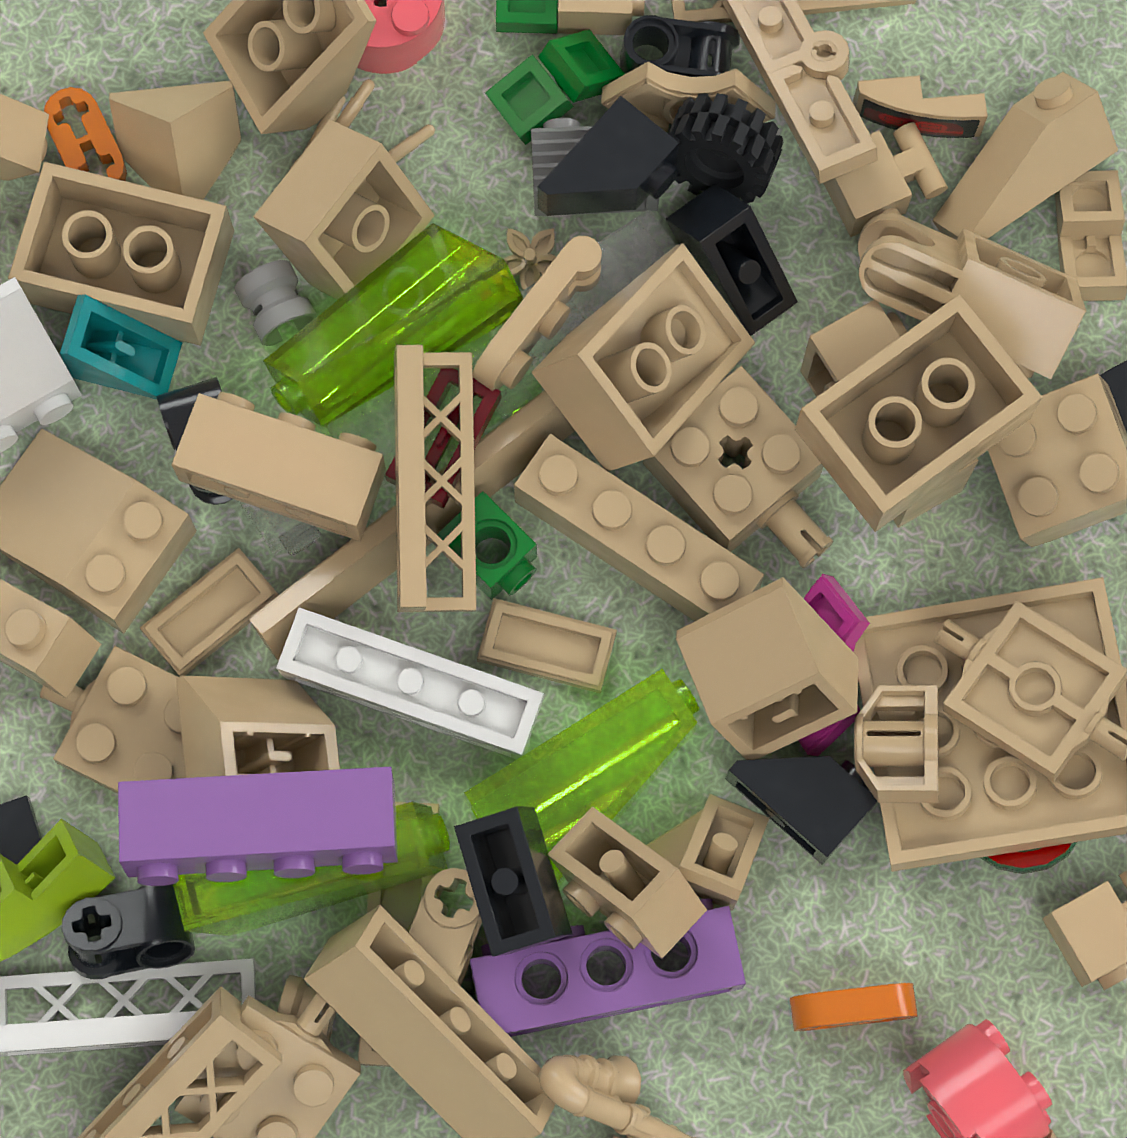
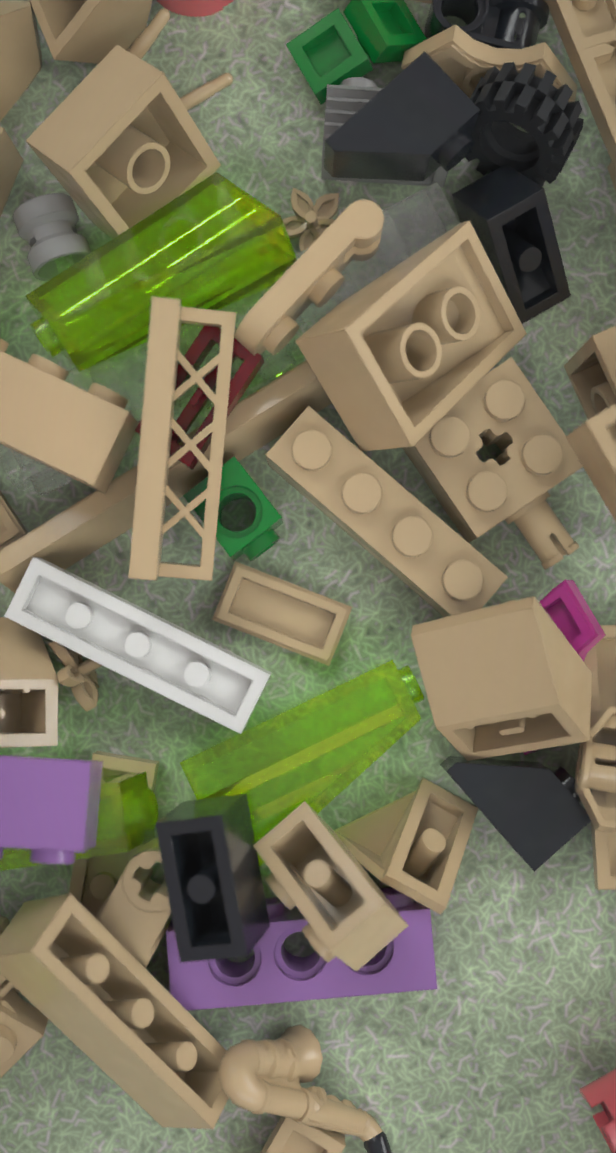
camera: 10 degrees right, 10 degrees up
(348, 724) = (78, 675): none -> tan plant
(853, 1006) = (538, 1012): orange beam -> none

